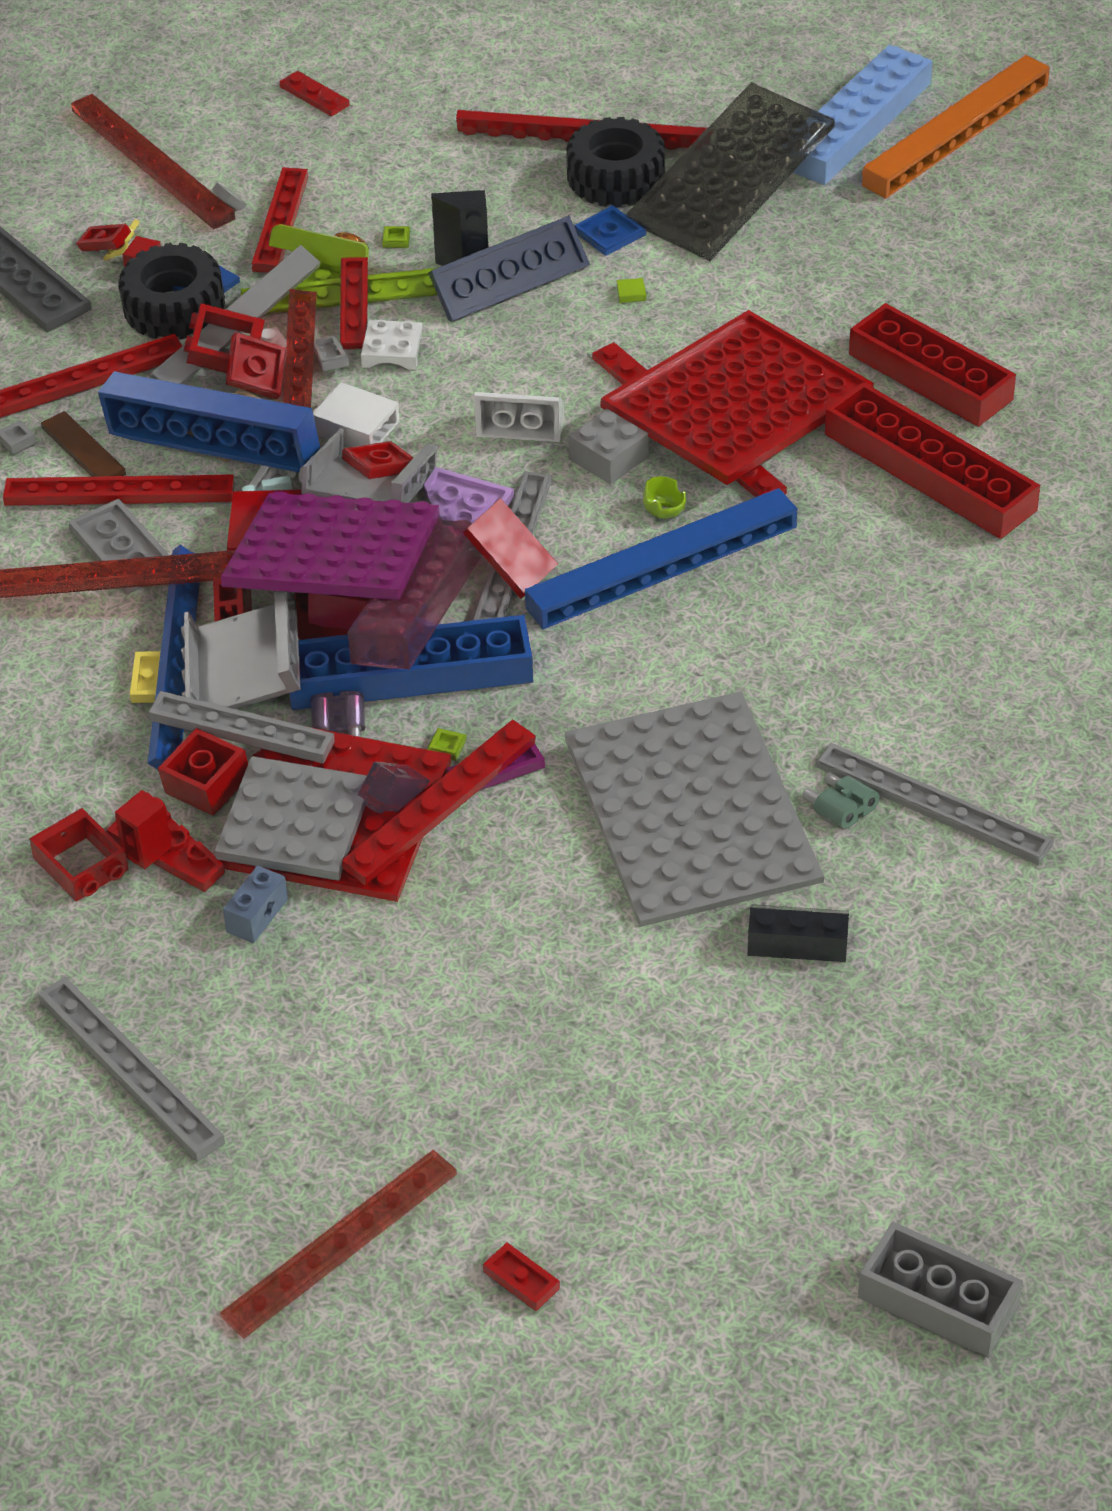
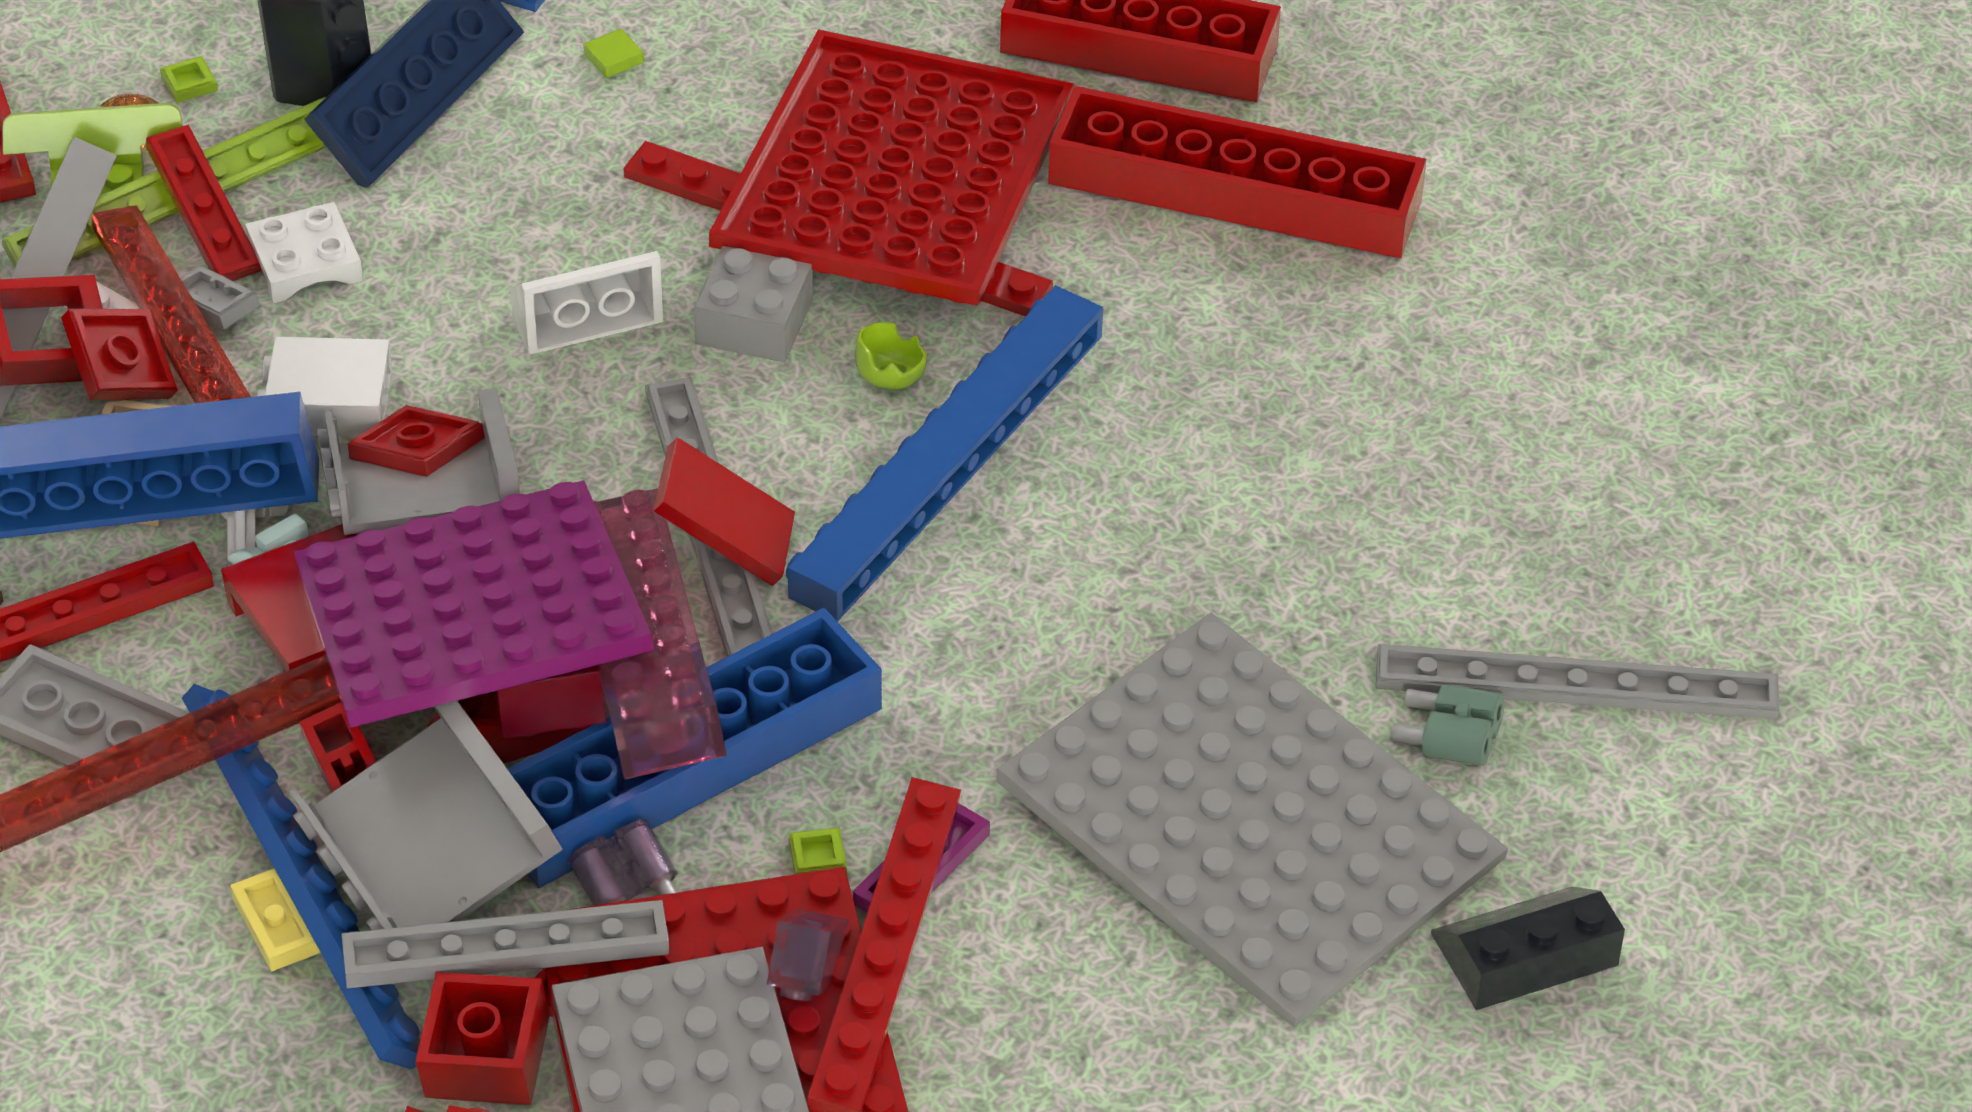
camera: 30 degrees left, 0 degrees up
(463, 496) = (605, 453): lavender plate -> none

